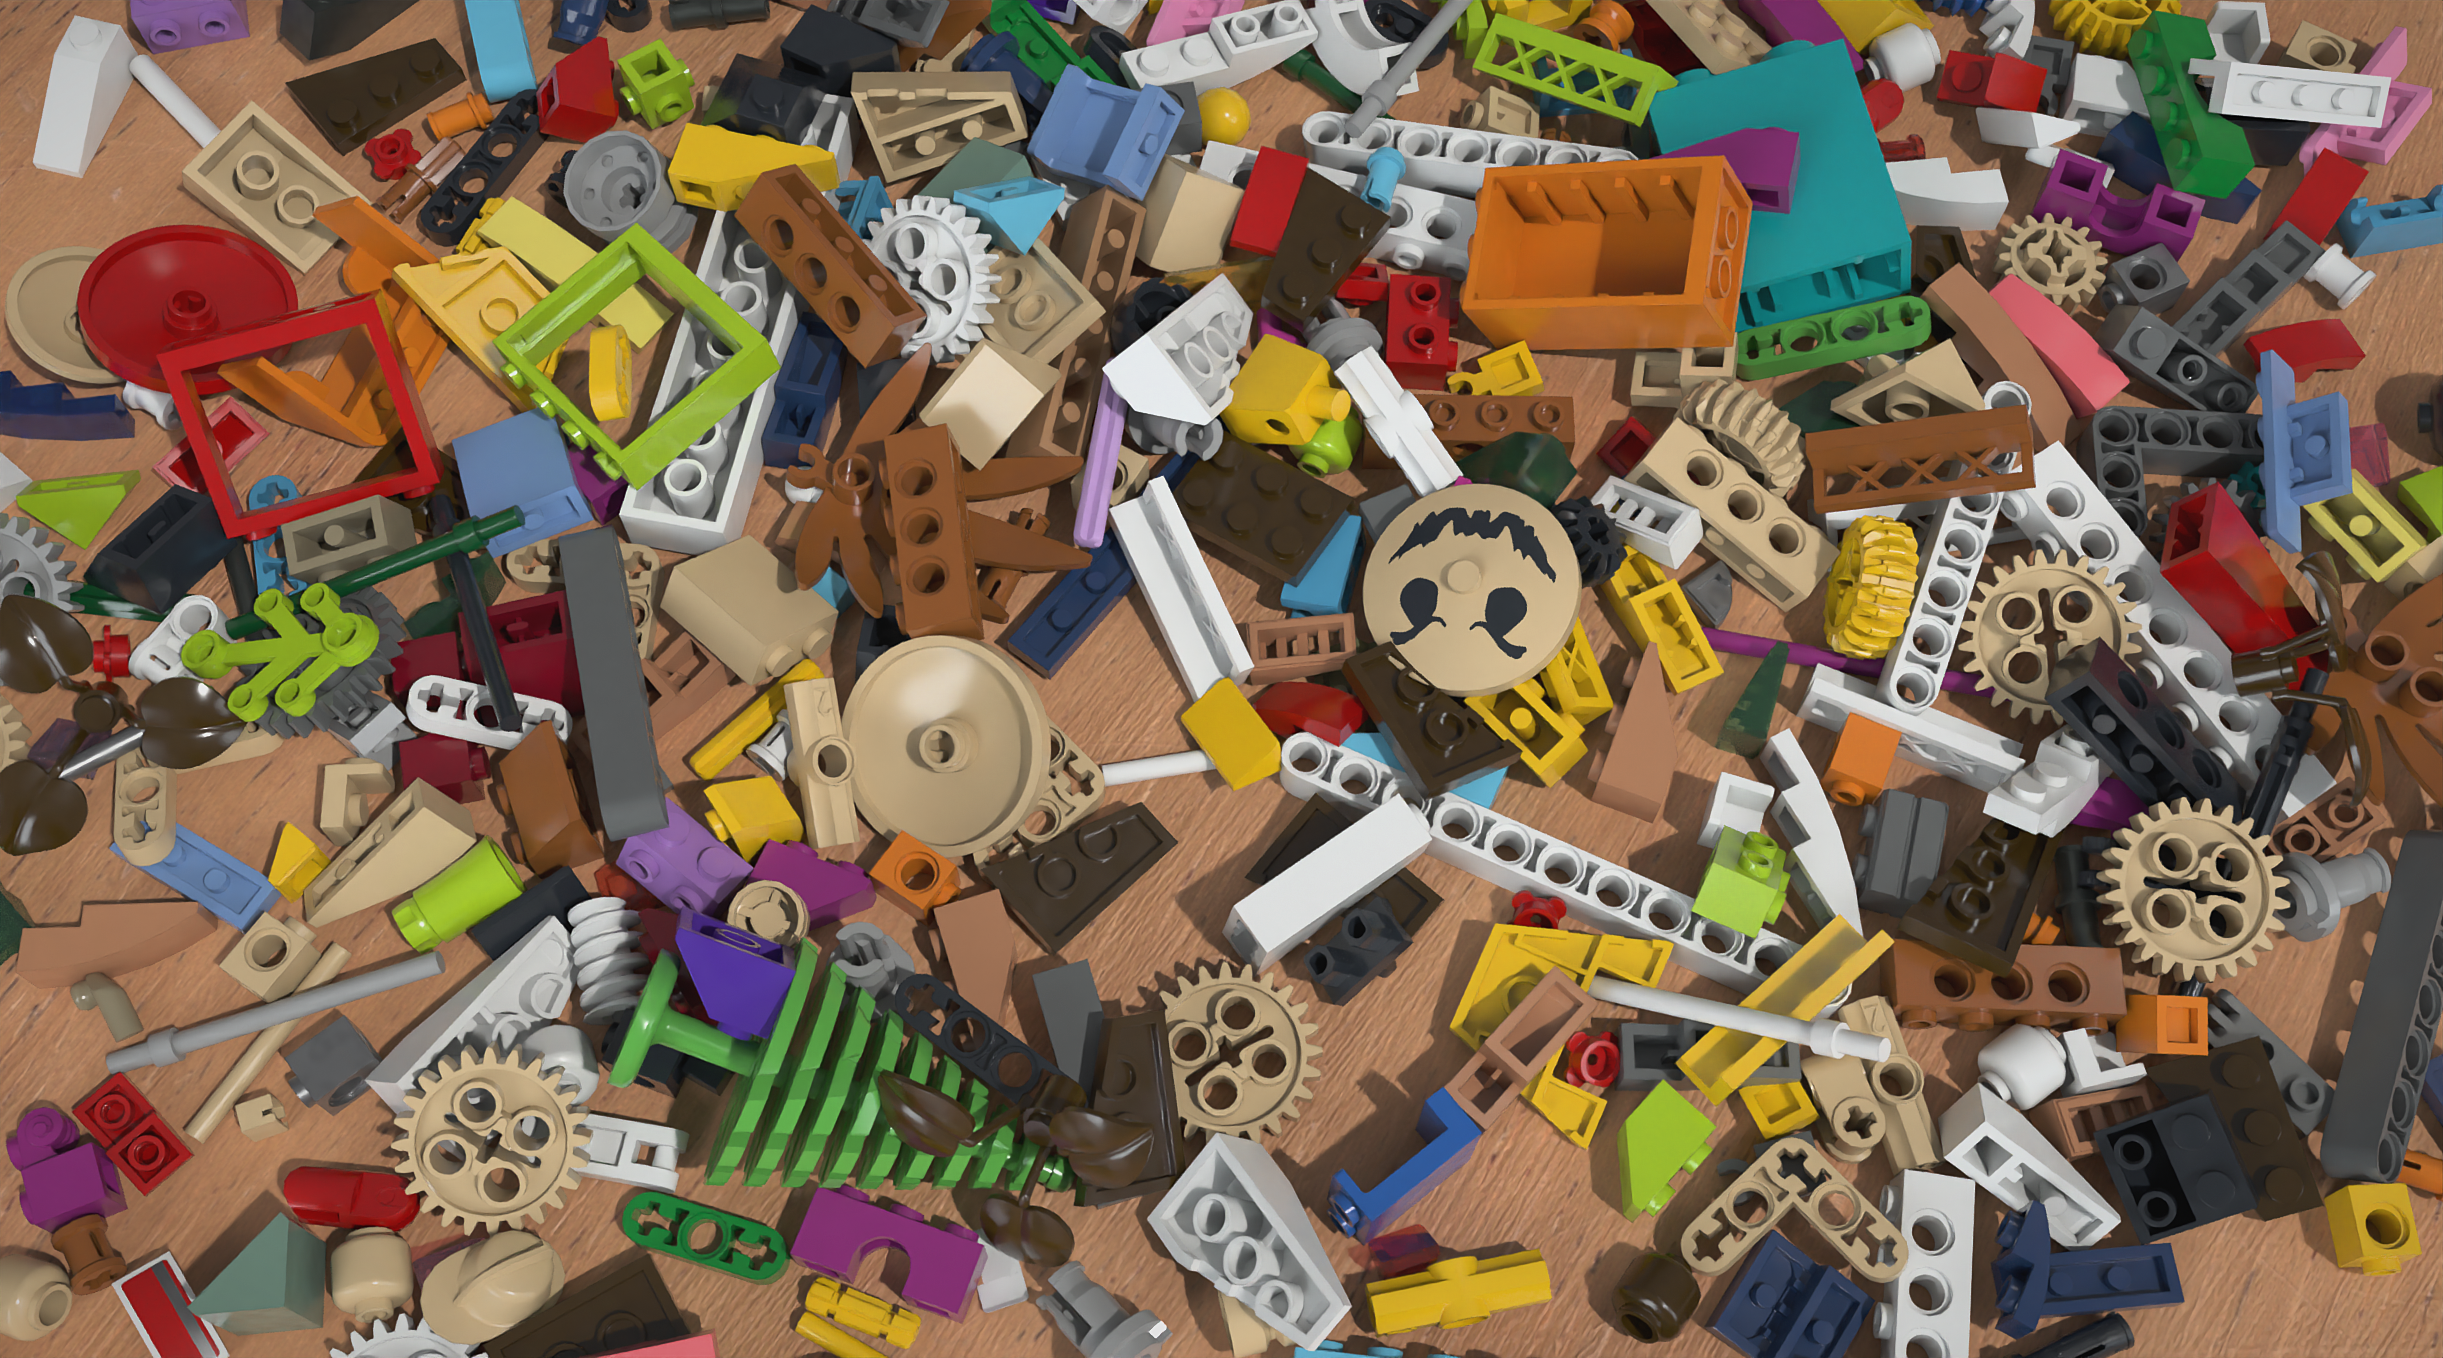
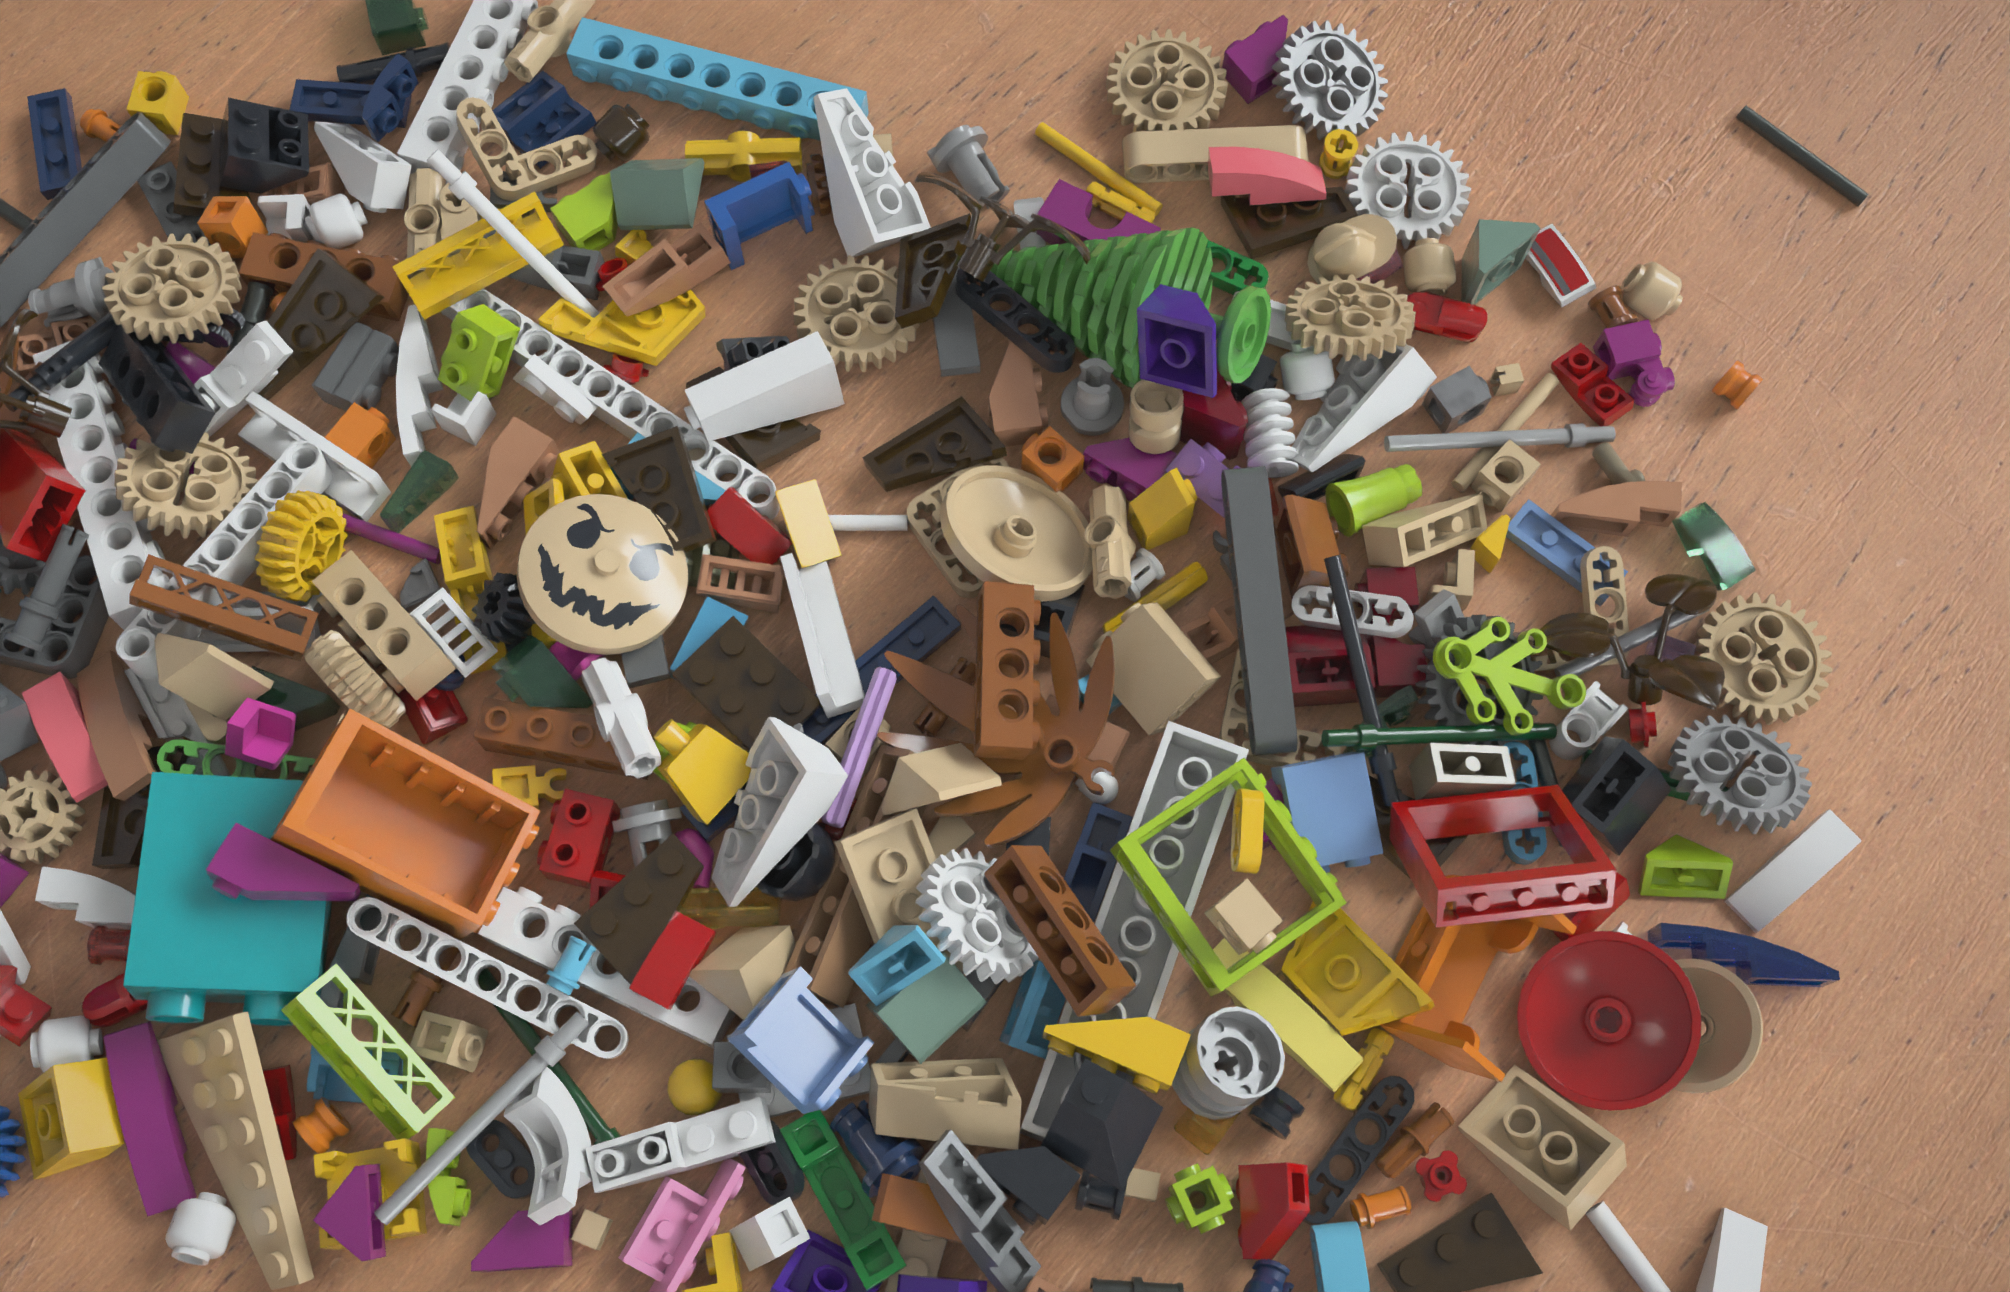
camera: 170 degrees left, 5 degrees up
(611, 283) = (1244, 918): none -> tan brick
(1332, 1241) = (818, 183): none -> reddish brown gear
(1568, 1195) = (657, 193): none -> sand green slope
(1636, 853) = (554, 390): none -> white wing
(1822, 354) = (260, 733): none -> dark pink panel
(2148, 449) = (40, 608): none -> dark grey pin

